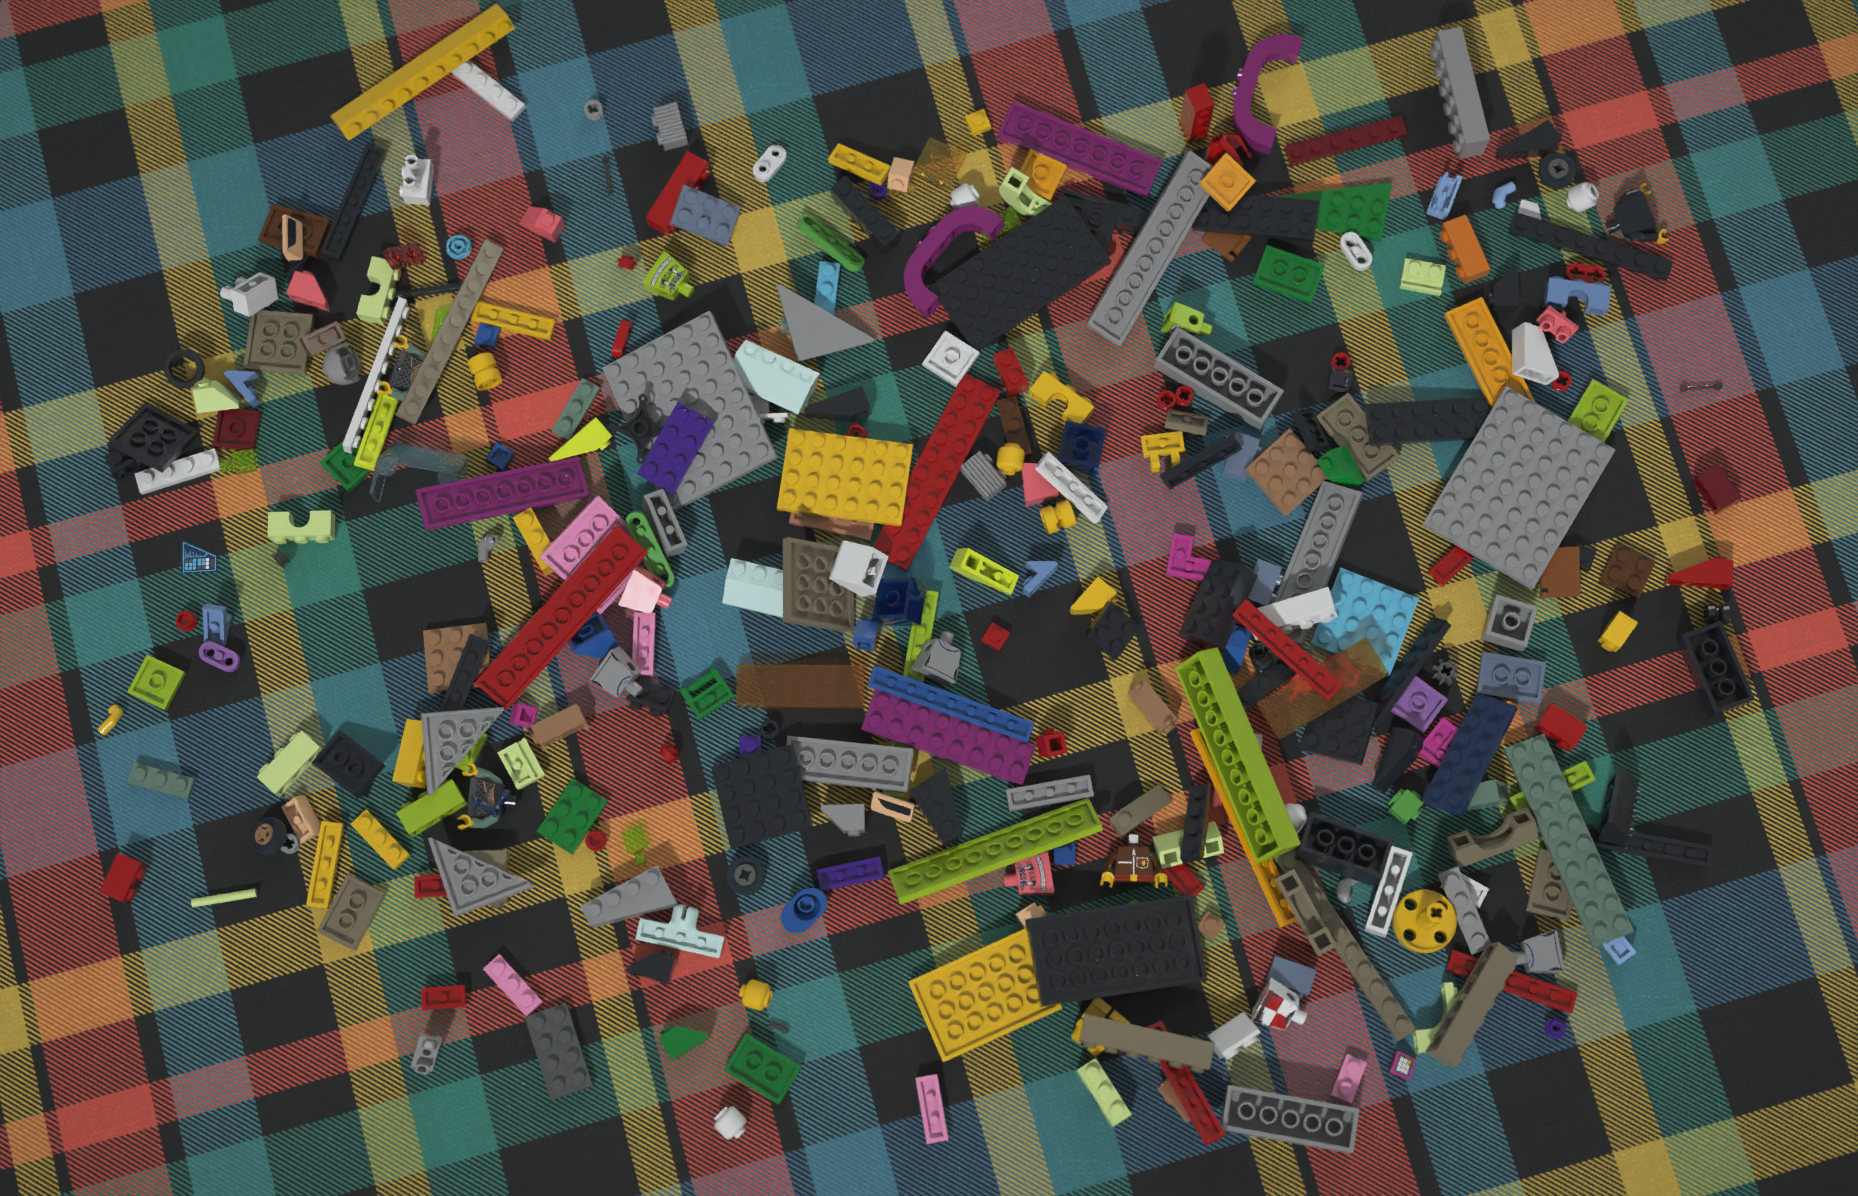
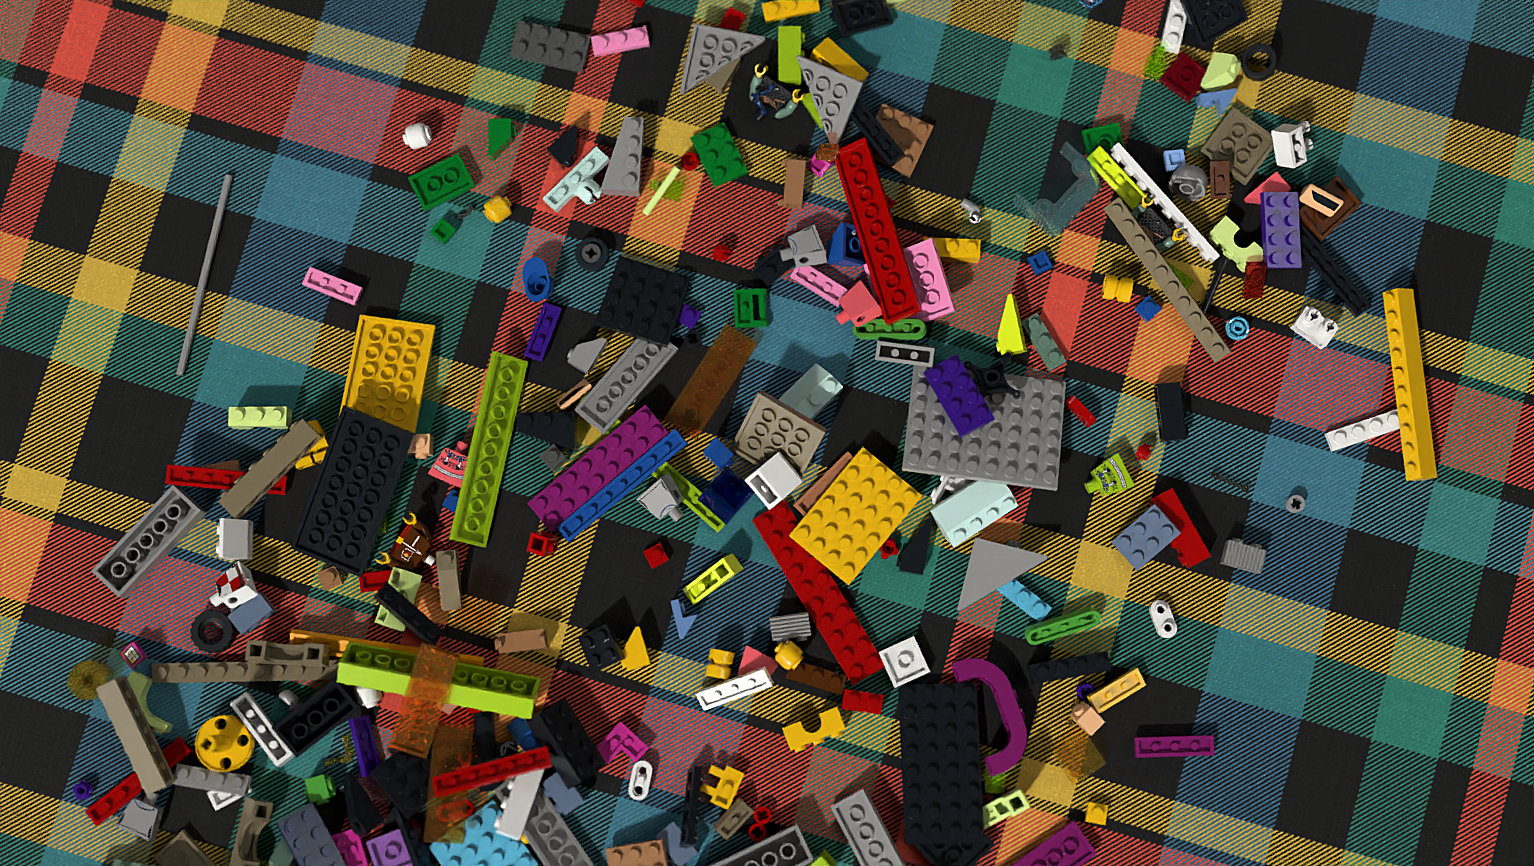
camera: 120 degrees right, 5 degrees up
(319, 528) = (1080, 67): yellowish green arch -> none
(326, 392) = (1174, 159): none -> light blue plate
(341, 257) = (1280, 230): none -> dark purple plate
(501, 493) = (1003, 241): magenta plate -> none
(510, 709) = (827, 152): none -> clear orange plate
(513, 320) = (1148, 336): yellow tile -> none
(521, 764) = (782, 140): yellowish green plate -> none
(543, 223) = (1218, 405): coral slope -> none
(575, 260) = (1170, 412): none -> black brick
(640, 846) = (661, 190): none -> yellowish green bar
(811, 1035) = (443, 231): none -> green plate
(877, 90) = (1174, 746): none -> magenta plate
(964, 196) = (1035, 759): white head -> none
(965, 785) = (553, 458): none -> dark grey brick
(1043, 174) = (1017, 835): light orange plate -> none
(1049, 793) = (507, 520): light grey plate -> none
(1081, 447) = (763, 718): clear blue brick -> none
(1205, 523) = (641, 780): none -> white plate
(1264, 749) = (424, 700): none -> clear orange plate
(1340, 789) = (364, 744): none -> dark purple plate
(1346, 995) = (199, 625): none -> black tyre
(1348, 1078) = (151, 608): bright pink plate -> none
(1365, 803) = (329, 762): none -> clear yellow piece
(1443, 1096) = (80, 677): none -> clear yellow brick

